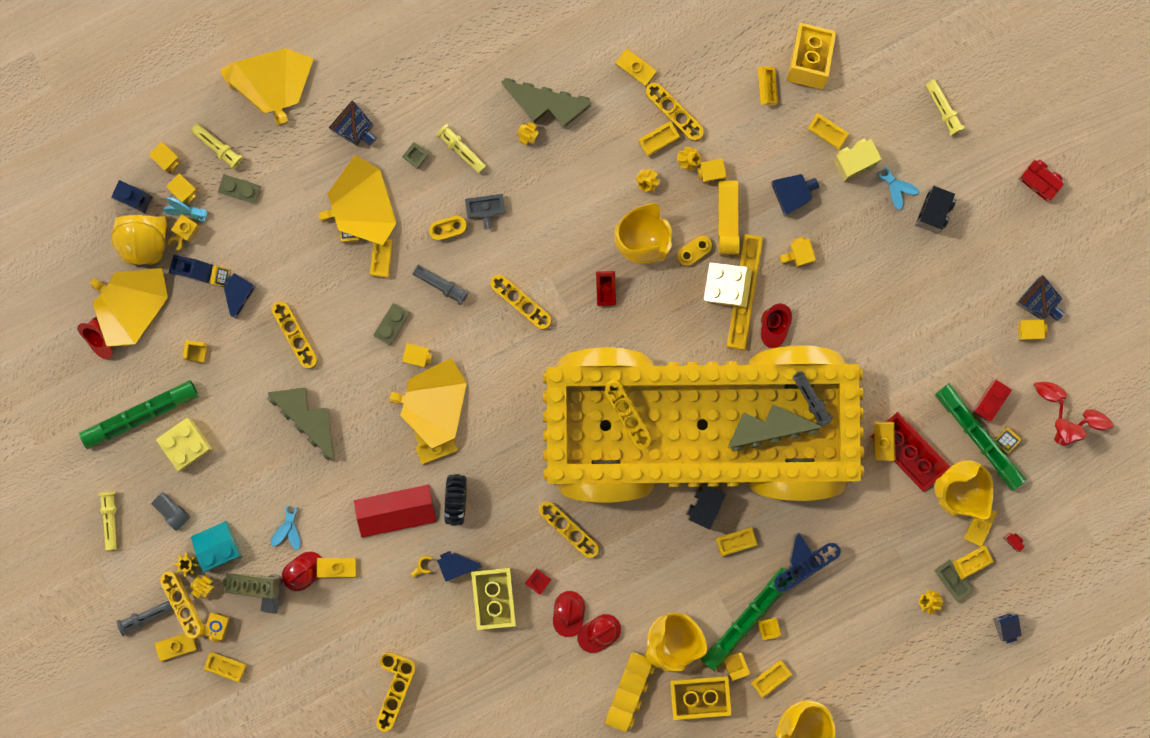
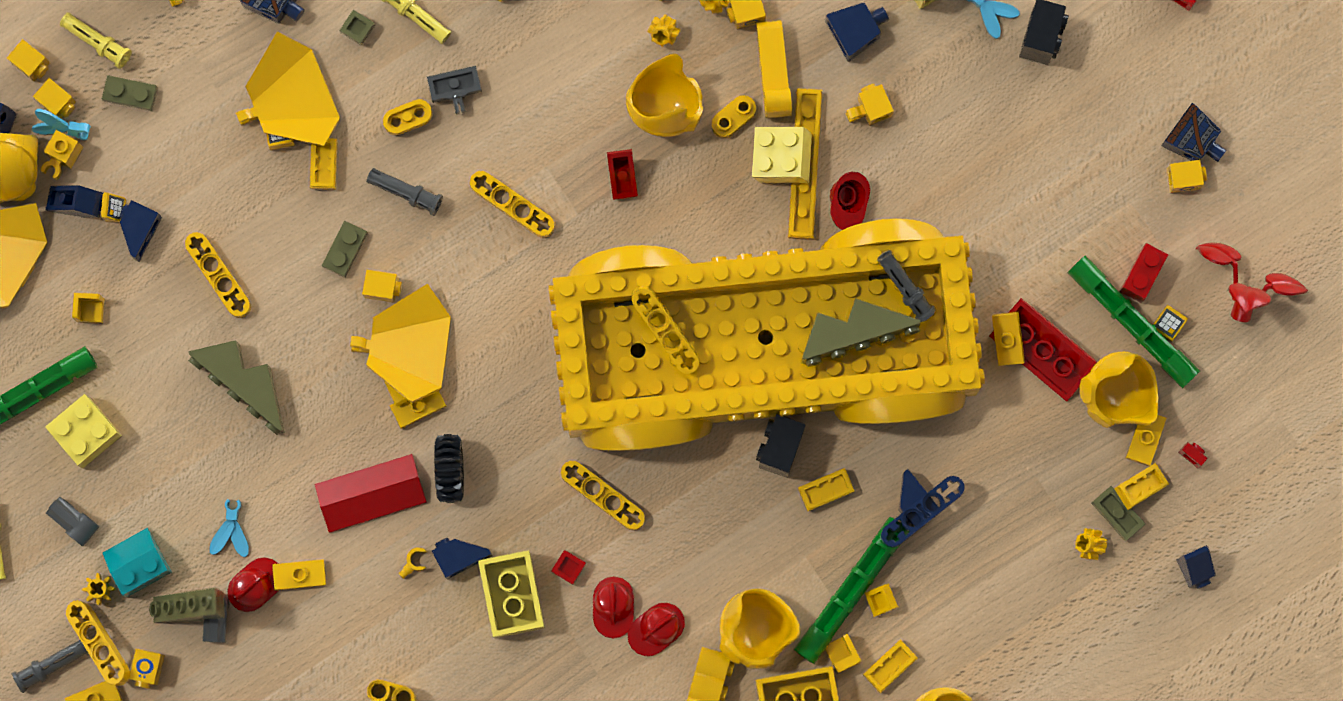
camera: 10 degrees left, 5 degrees down
(201, 586) = (122, 616): yellow gear -> none

